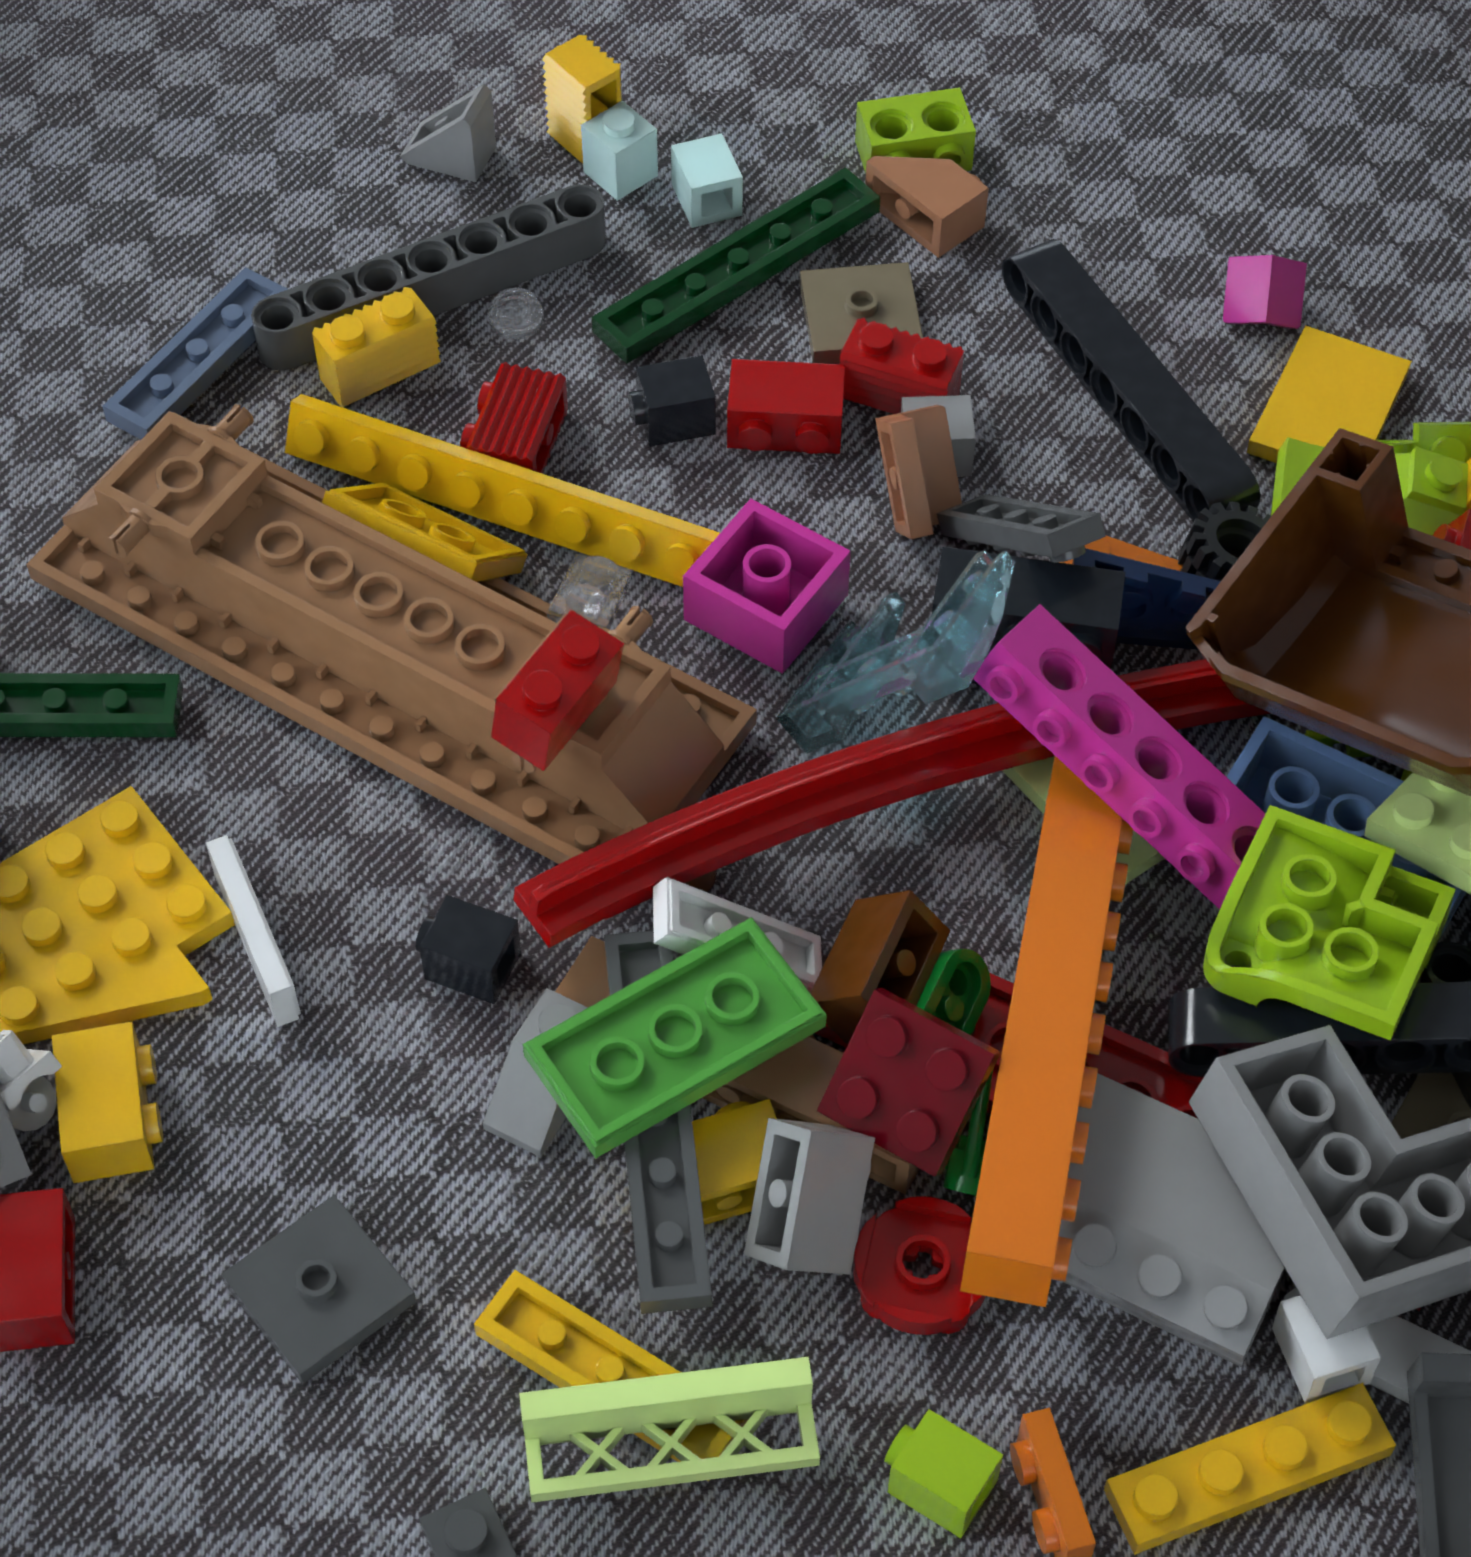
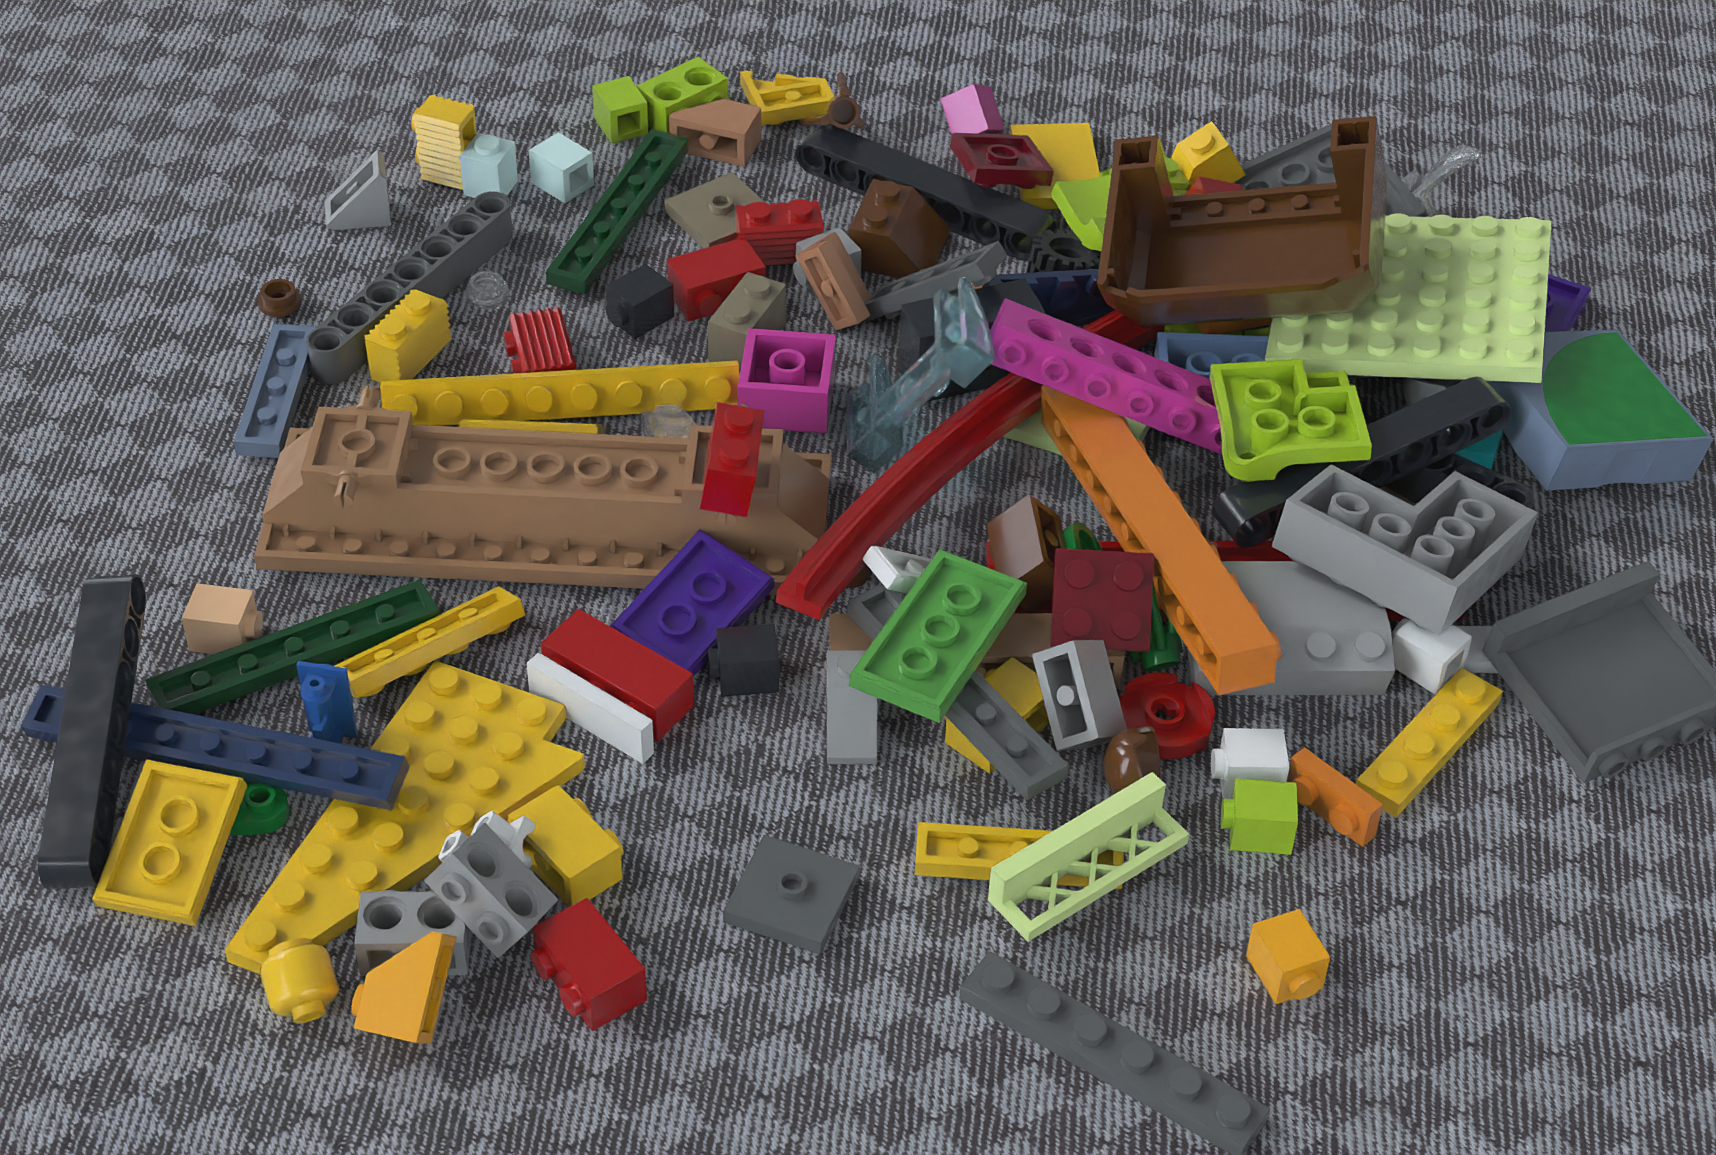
camera: 30 degrees left, 10 degrees down
(137, 759) = (430, 640): none -> yellow plate
(281, 234) = (279, 298): none -> reddish brown plate
(310, 901) = (622, 669): none -> red brick
(455, 841) = (690, 598): none -> dark purple tile
(787, 473) = (753, 305): none -> dark tan brick
(828, 125) = (620, 109): none -> lime brick
(828, 1321) = (1131, 757): none -> reddish brown hair
(982, 1389) = (1249, 755): none -> white brick
(1046, 182) = (787, 97): none -> yellow wing
(1050, 428) = (897, 231): none -> reddish brown slope
(1079, 231) = (840, 110): none -> reddish brown plant
(1241, 377) = (1001, 160): none -> dark red plate

